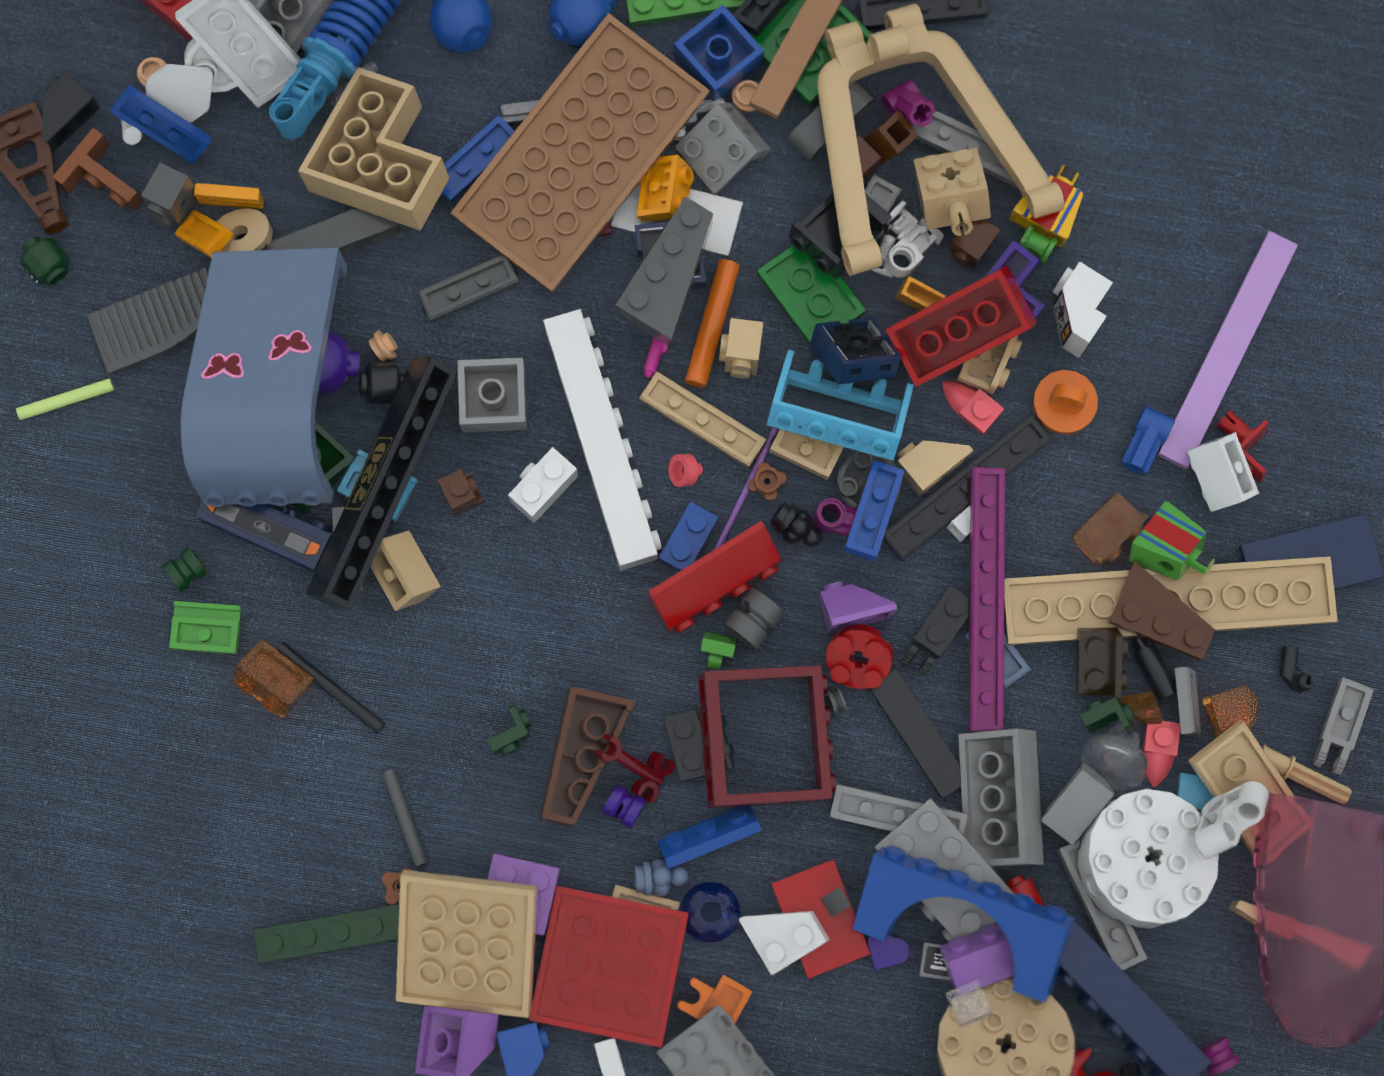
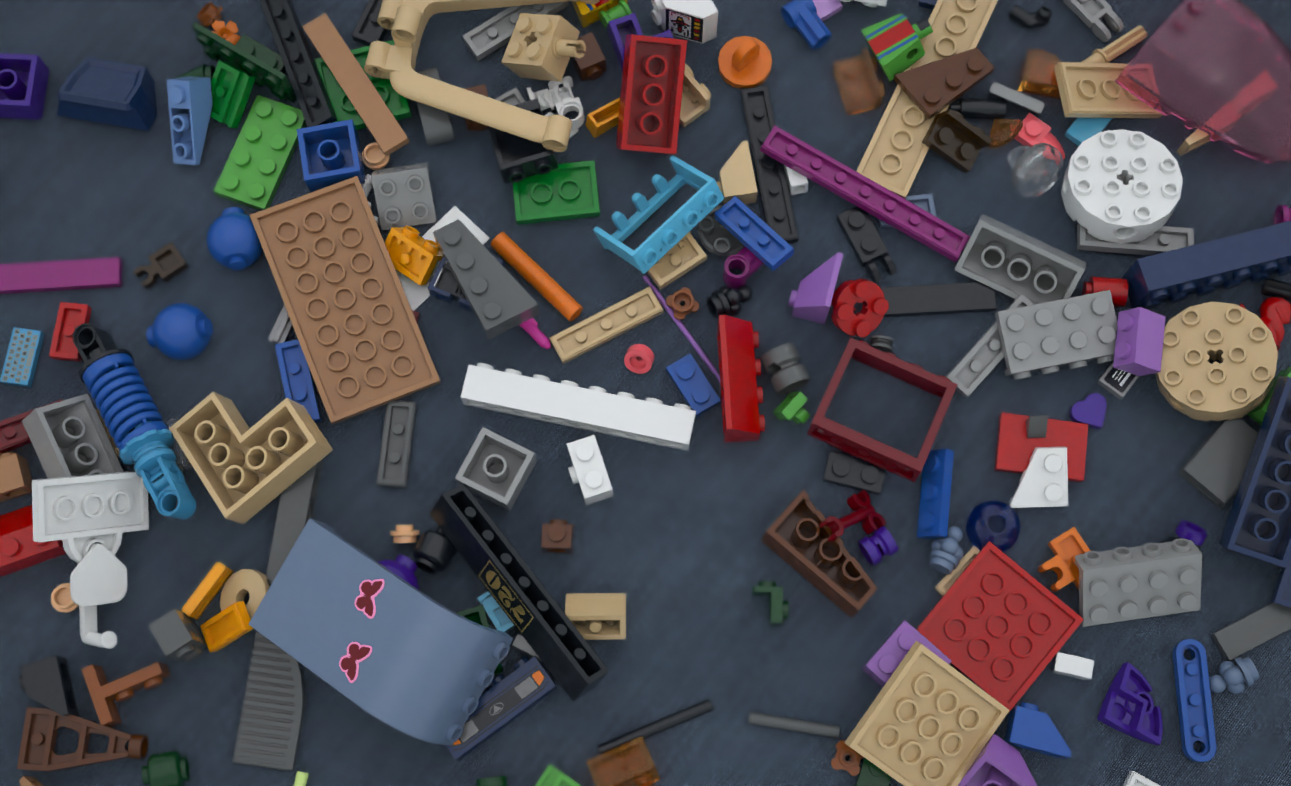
camera: 55 degrees left, 5 degrees down
(160, 124) = (113, 611): blue plate -> none
(741, 348) = (571, 261): tan brick -> none
(855, 350) = (623, 180): dark blue piece -> none
(891, 136) = (473, 68): reddish brown brick -> none
(909, 102) = (454, 44): magenta piece -> none
(968, 1003) = (1173, 365): clear plate -> none
(972, 405) = (709, 127): coral plate -> none
(1033, 931) = (1054, 364): blue arch -> none
(1078, 804) = (1054, 212): light grey brick -> none
(1103, 713) = (994, 160): dark green bracket -> none
(1228, 816) = (1123, 107): white piece -> none

